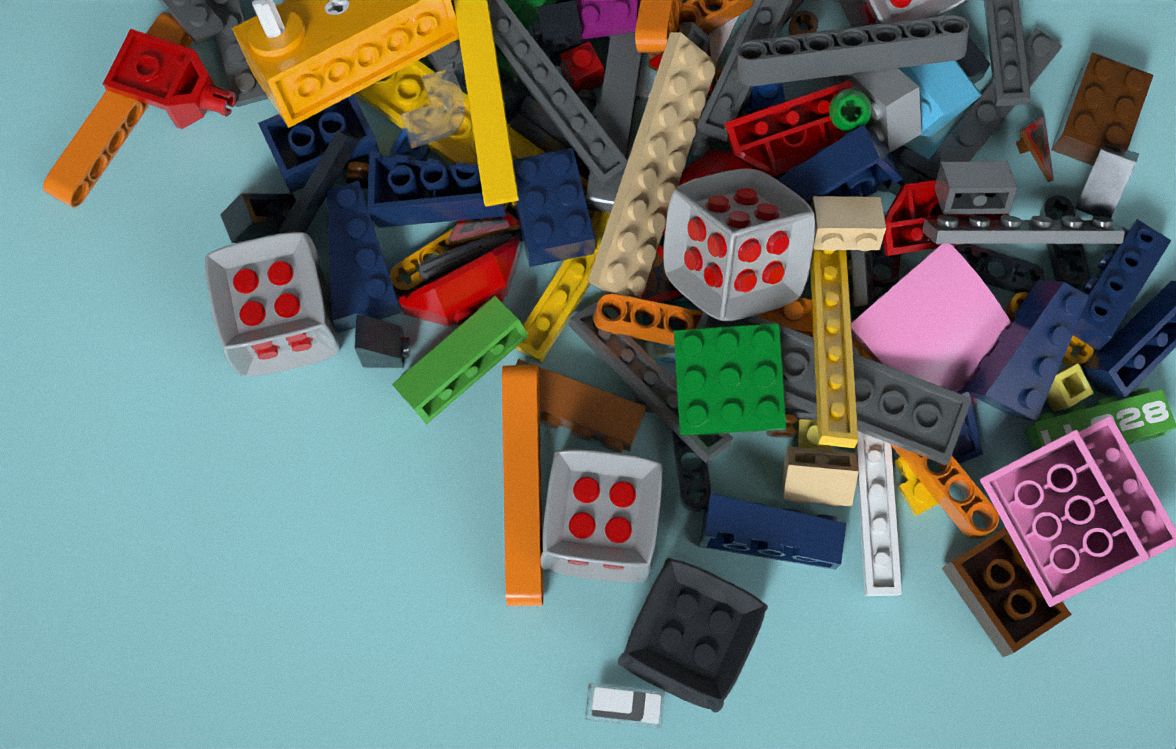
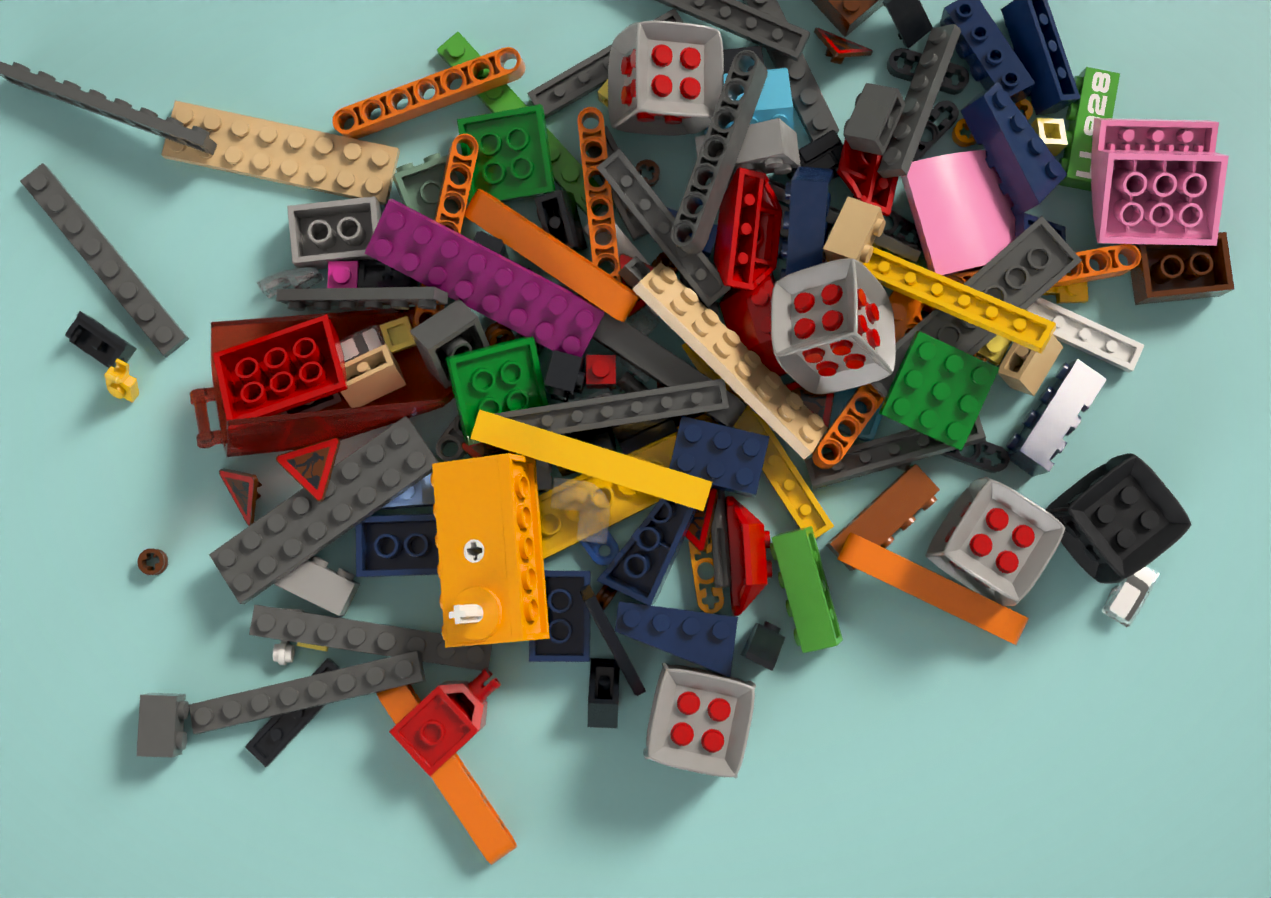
camera: 65 degrees left, 10 degrees up
(850, 109) = (768, 181): green piece -> none

